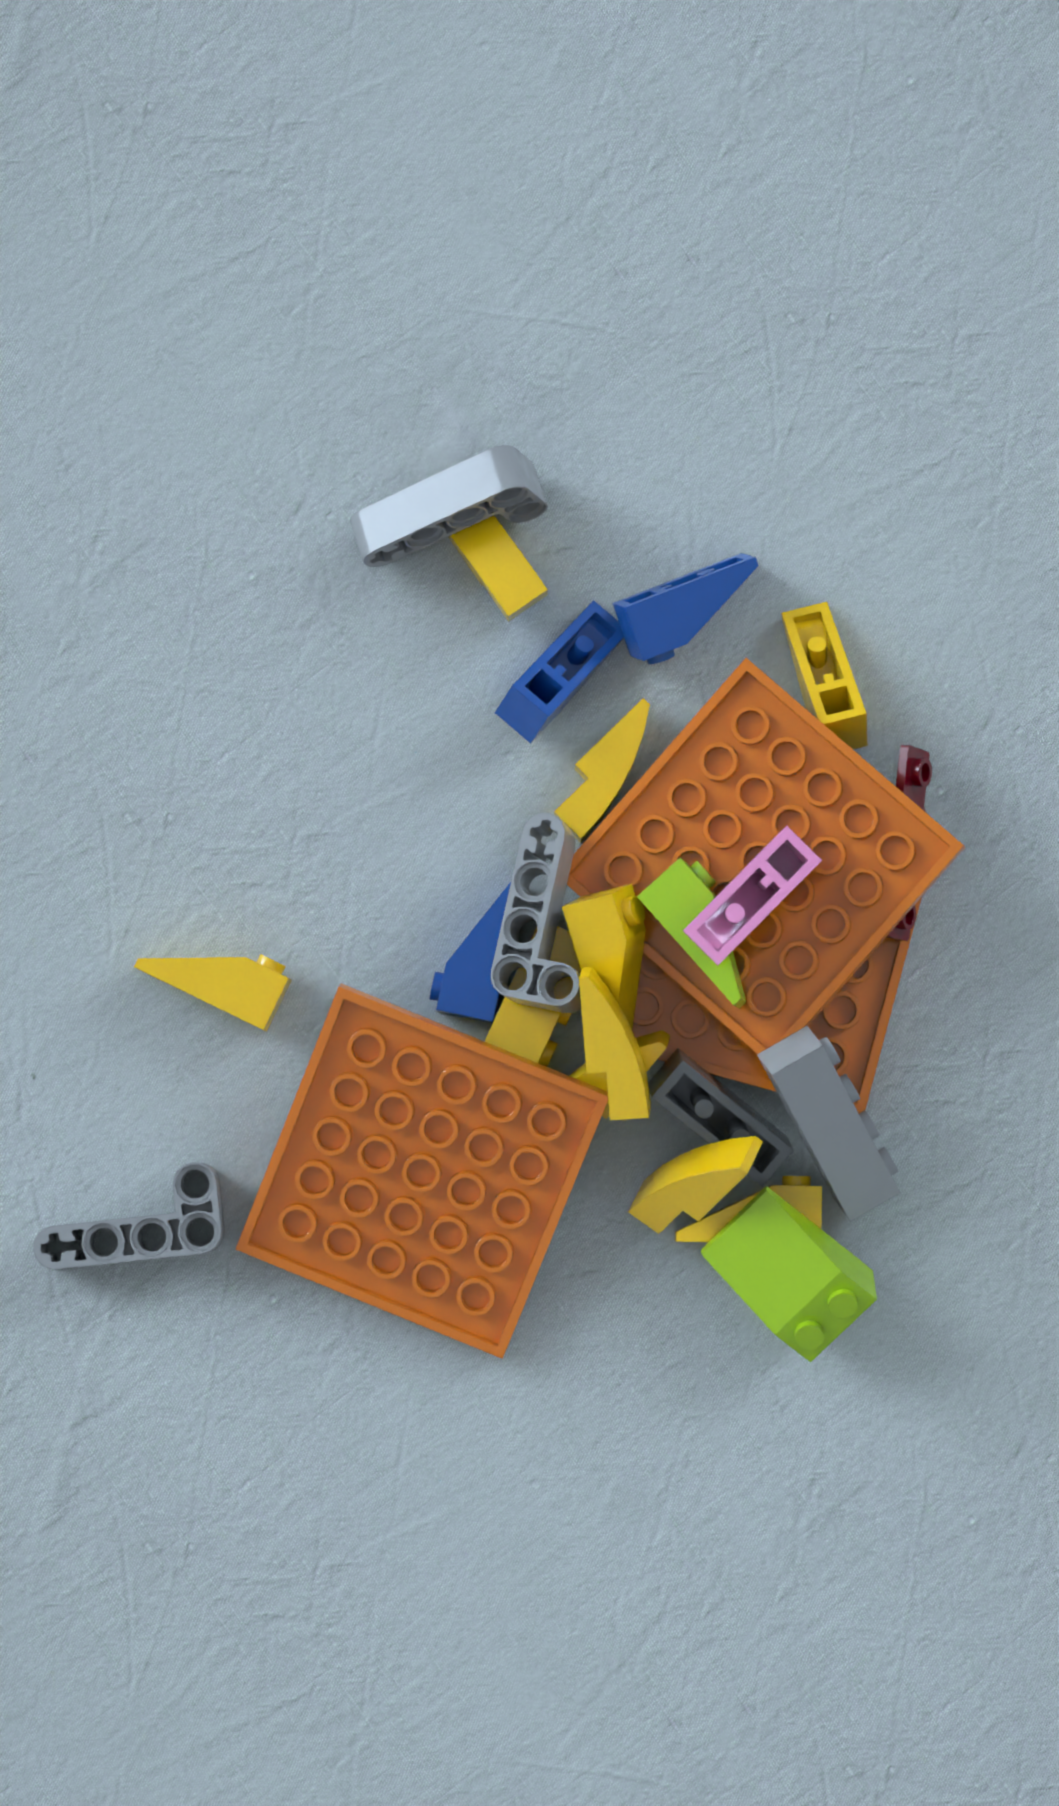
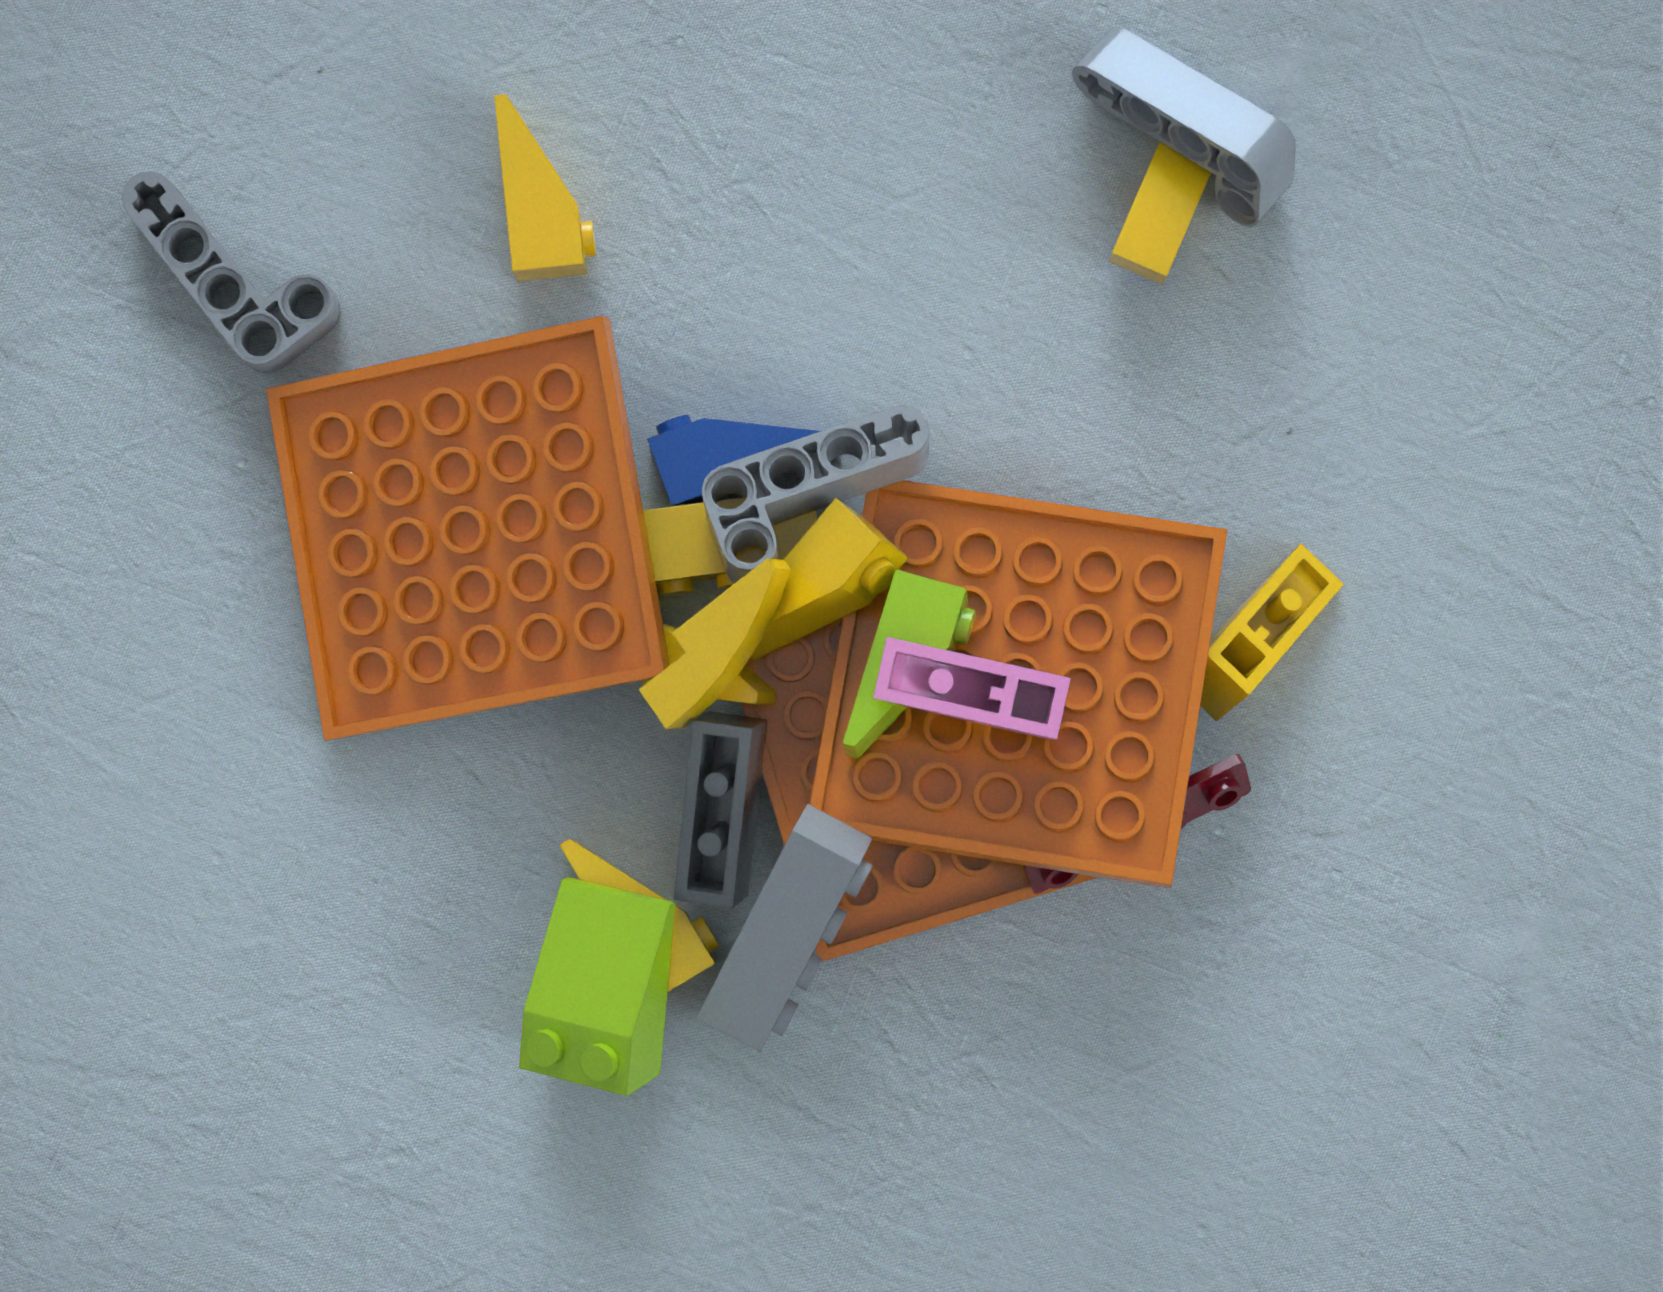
camera: 55 degrees right, 0 degrees up
(560, 672) = (1089, 348): blue slope -> none
(604, 772) = (1015, 461): yellow slope -> none
(677, 610) = (1232, 429): blue slope -> none
(694, 1181) = (632, 823): yellow slope -> none

